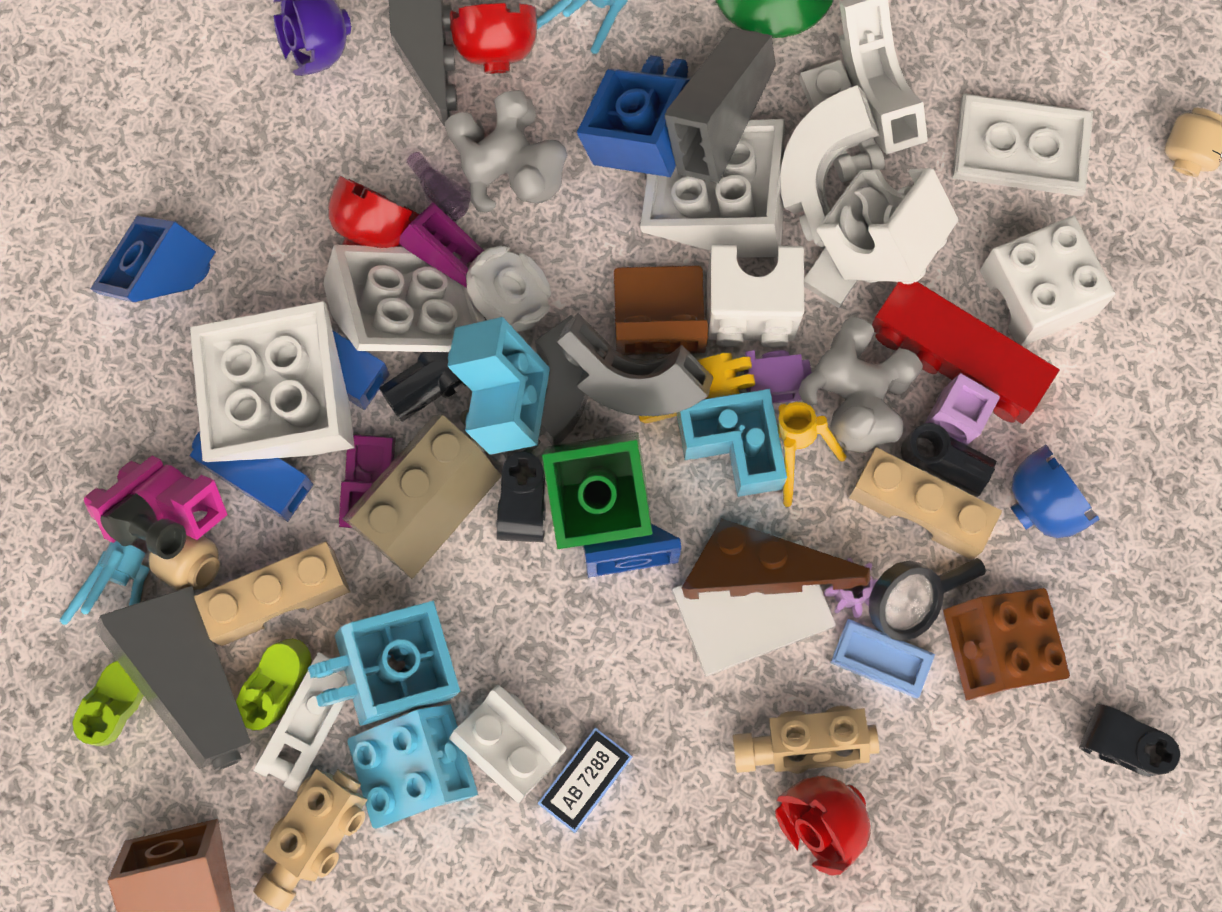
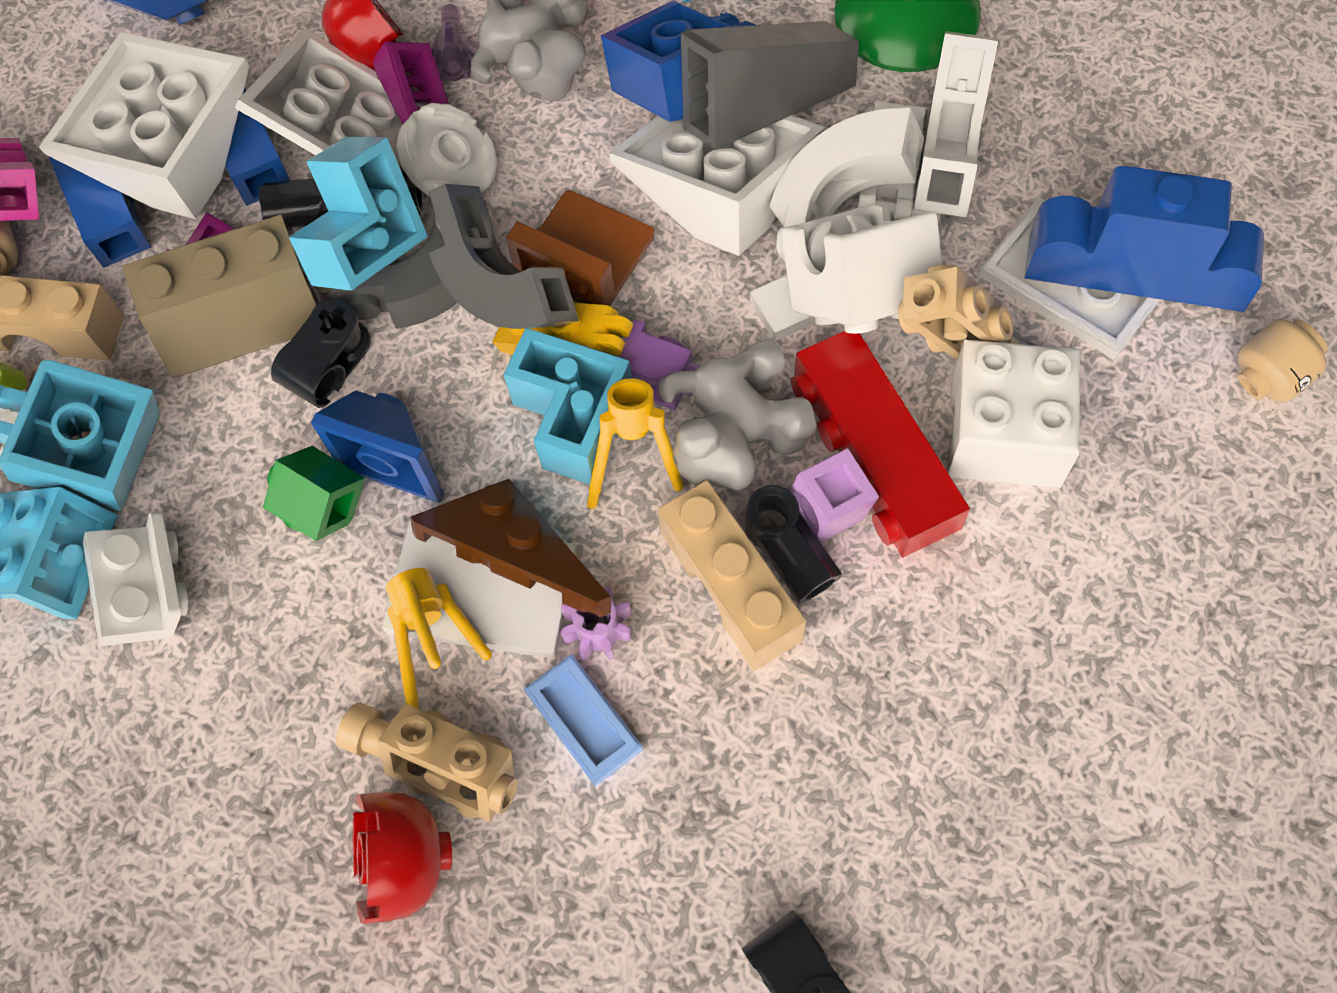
camera: 35 degrees right, 10 degrees down
(585, 780) = (187, 666): tile -> none
(593, 608) = (312, 492): none -> green brick
(597, 490) = (384, 360): green slope -> none
(727, 644) = (417, 606): none -> yellow plant
(752, 306) = (678, 280): white piece -> none
(911, 596) = (647, 667): black piece -> none
(977, 231) = (952, 307): none -> tan brick
(1006, 642) = (734, 779): dark orange bracket -> none
(1049, 497) = (877, 642): blue cylinder -> none
(1070, 104) = (1152, 240): none -> blue brick

